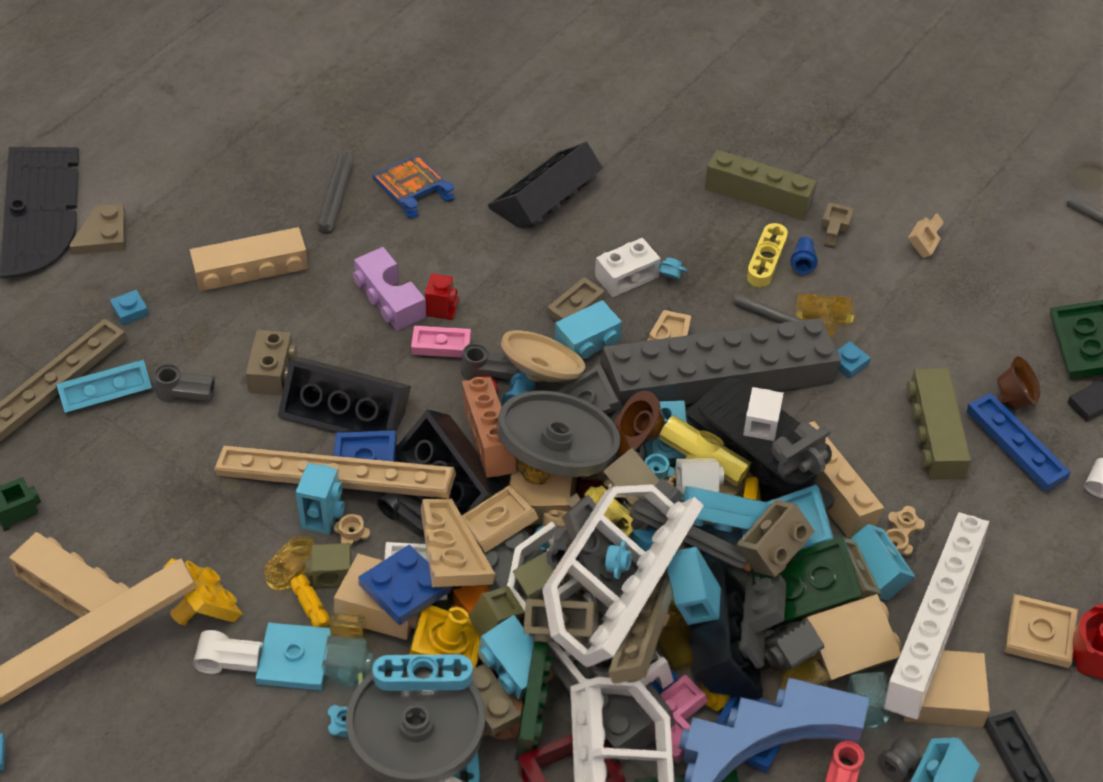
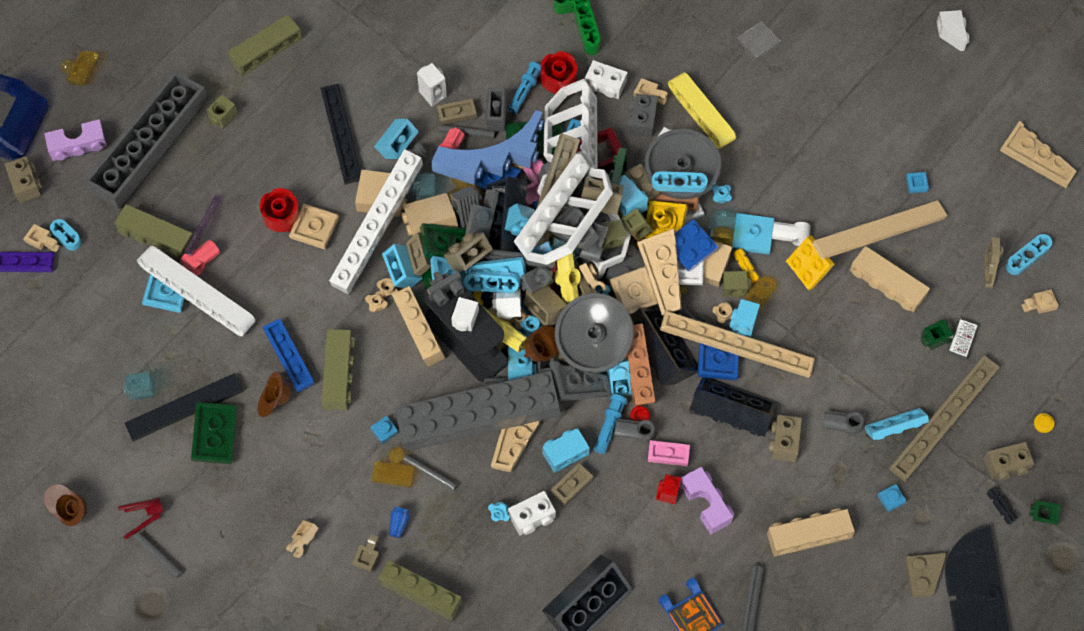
camera: 175 degrees left, 15 degrees up
(542, 357) = (588, 416): tan dish -> none
(618, 559) = (567, 215): medium azure plate -> none
(769, 264) = (422, 519): light yellow beam -> none

